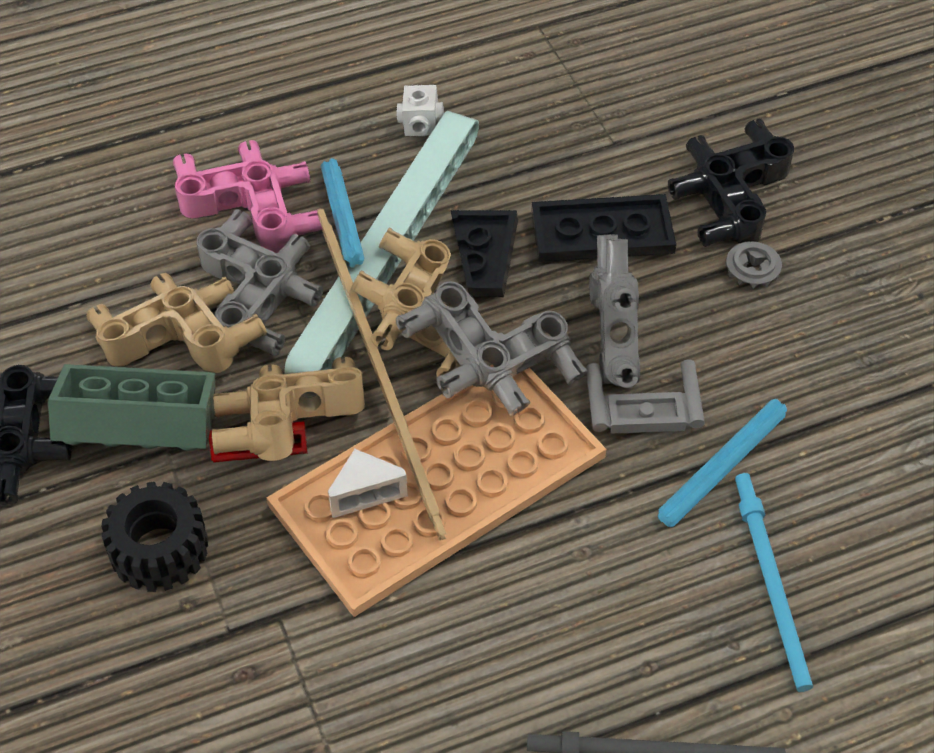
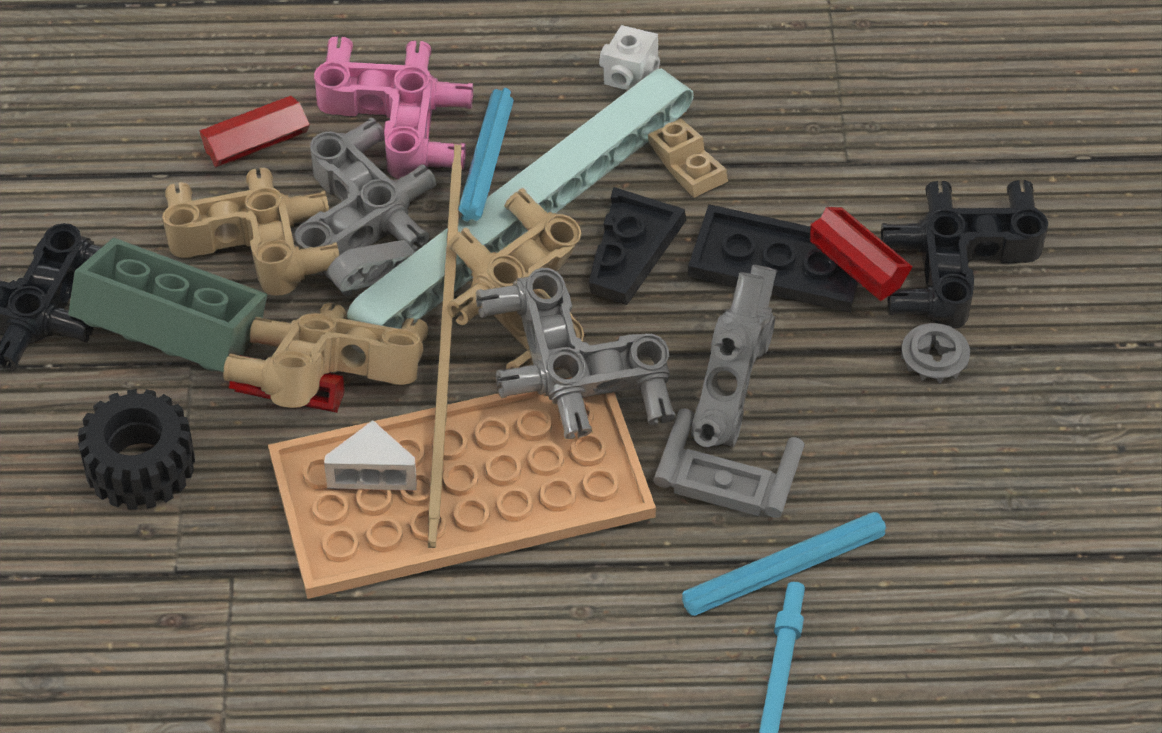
camera: 20 degrees right, 0 degrees up
(141, 247) = (254, 131): none -> piece
(289, 324) = (367, 264): none -> light grey beam
(490, 171) = (685, 158): none -> tan slope
(667, 204) = (859, 252): none -> red piece

